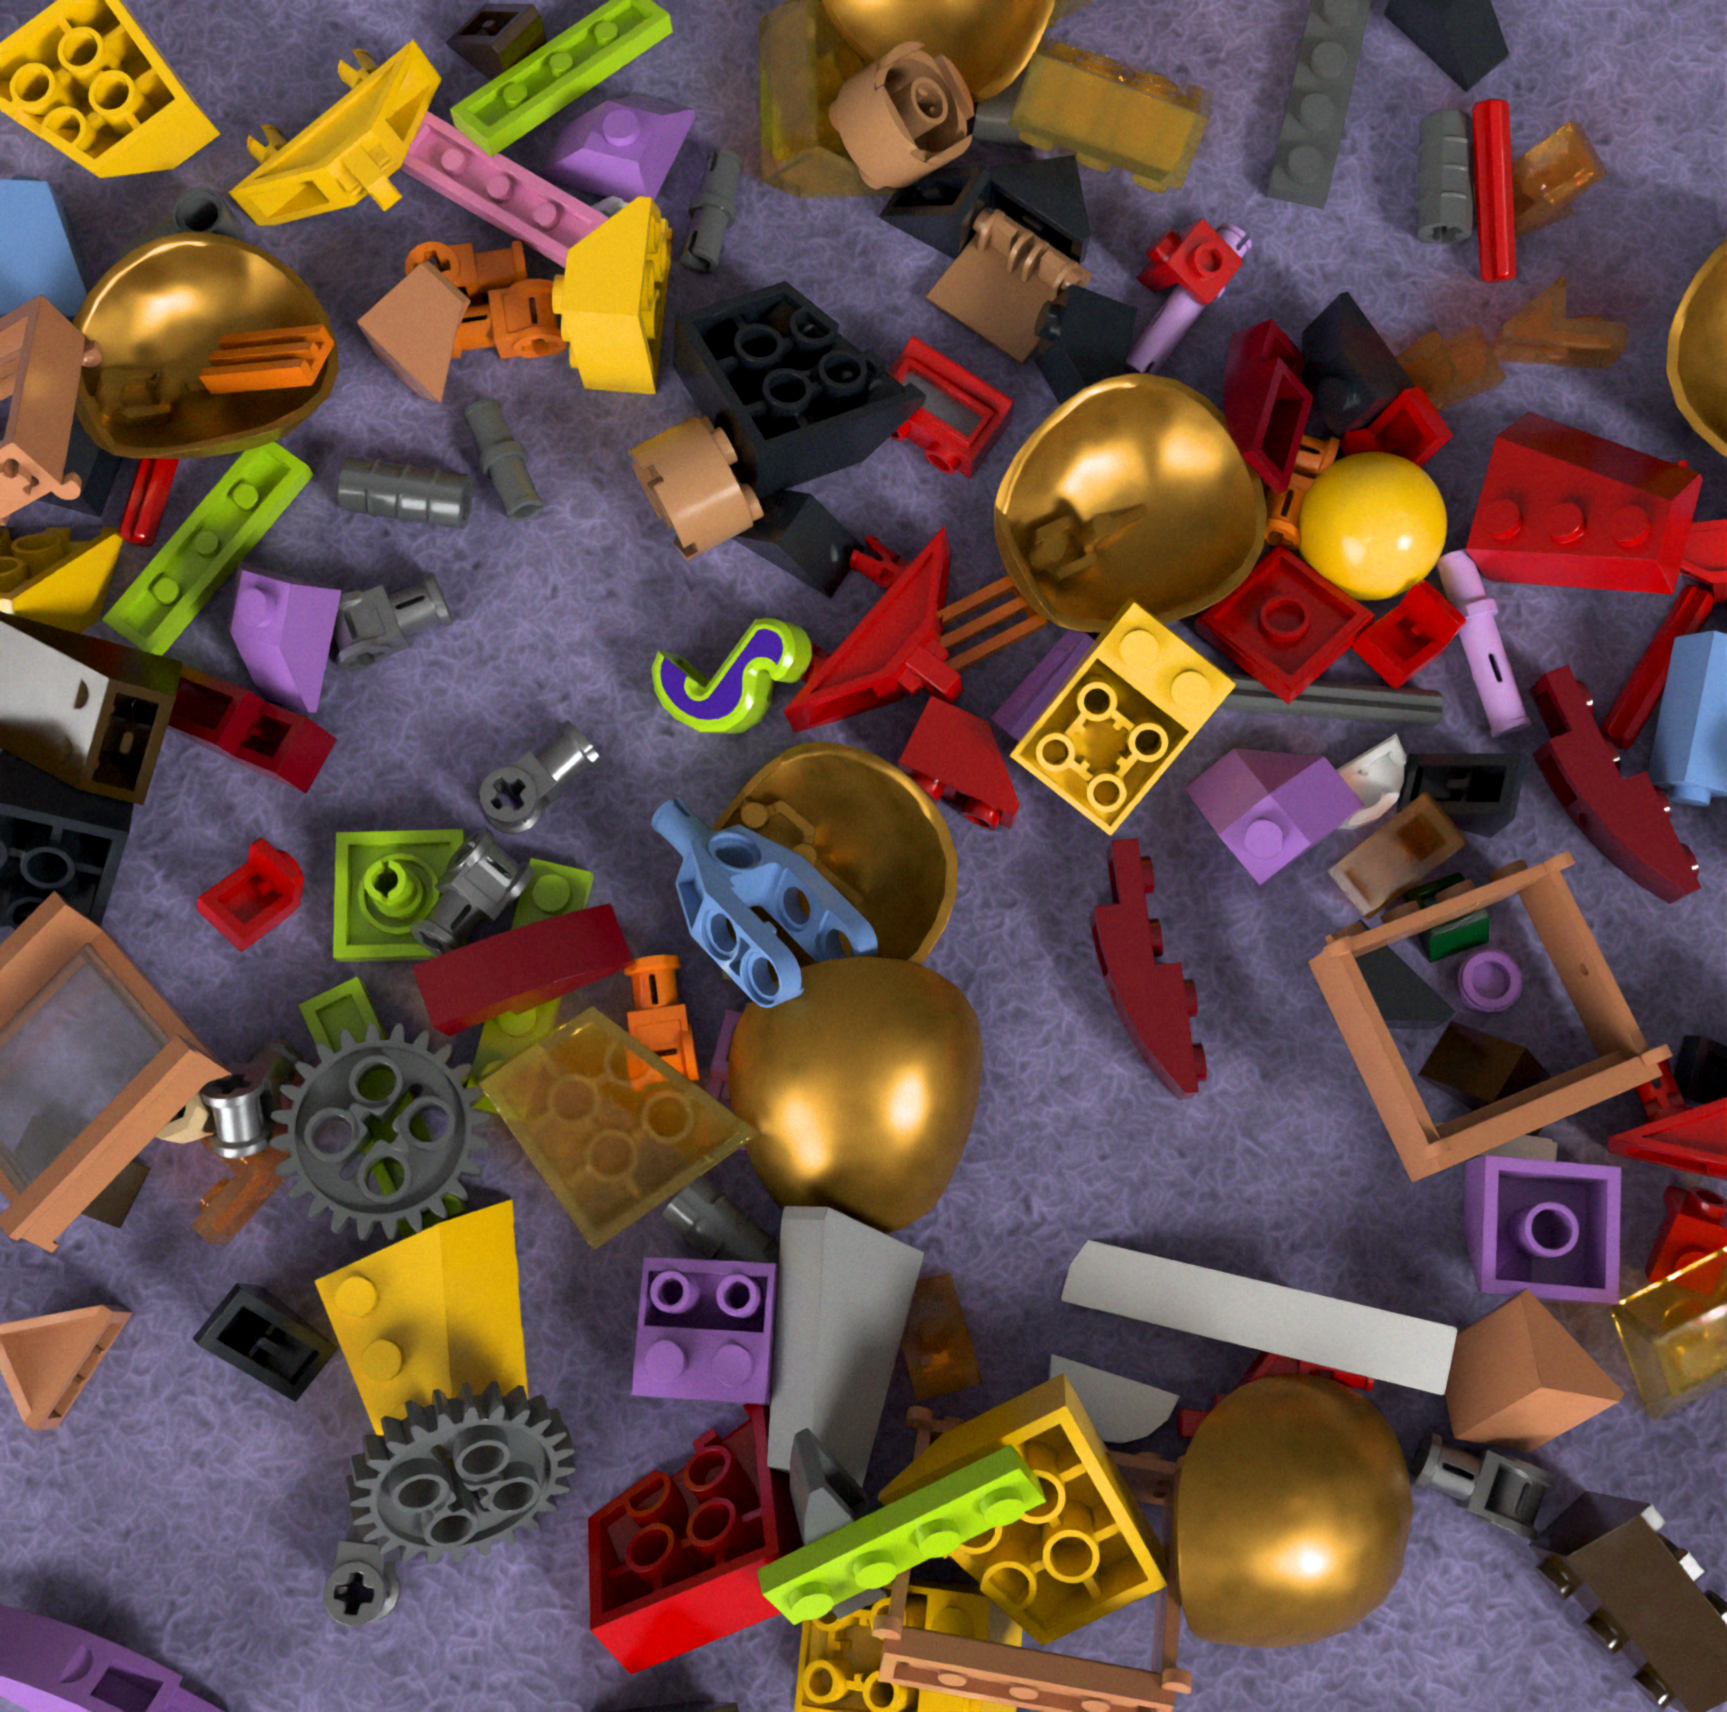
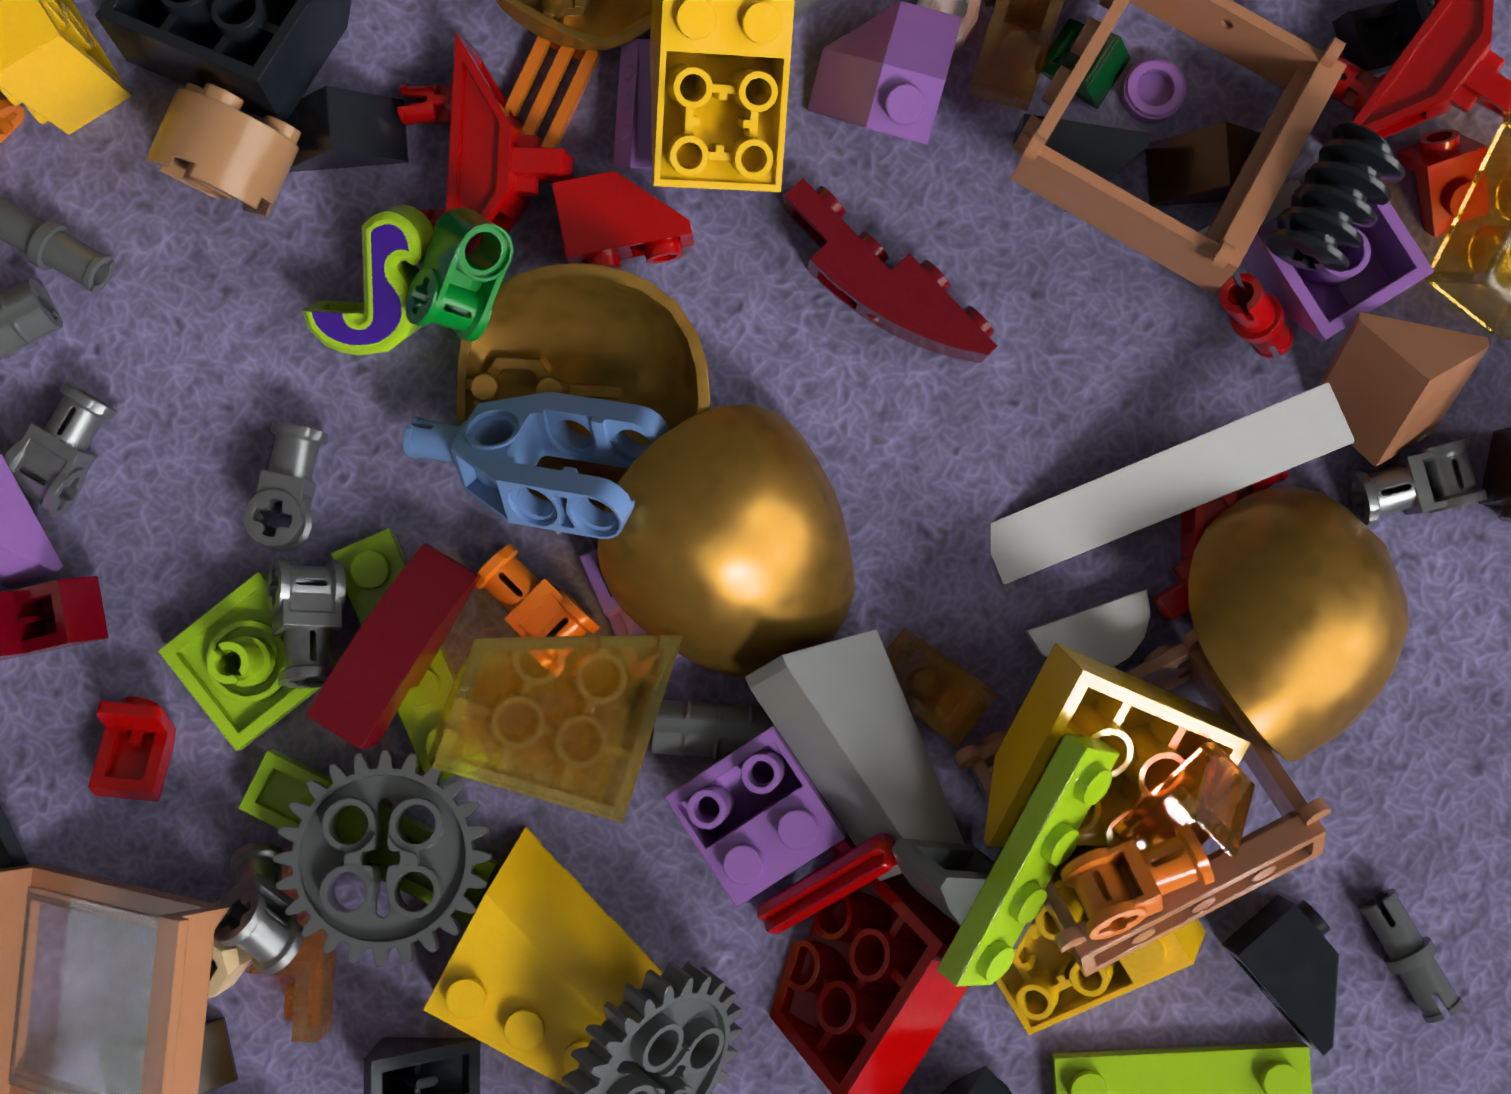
camera: 40 degrees left, 10 degrees up
(720, 1434) = (828, 884): none -> red axle
(796, 717) = (459, 281): none -> green piece
(976, 1618) = (1134, 880): none -> orange connector
(1072, 1600) = (1204, 793): none -> clear orange slope
(1438, 1230) = (1256, 315): none -> red pin
(1568, 1176) = (1336, 199): none -> black piece

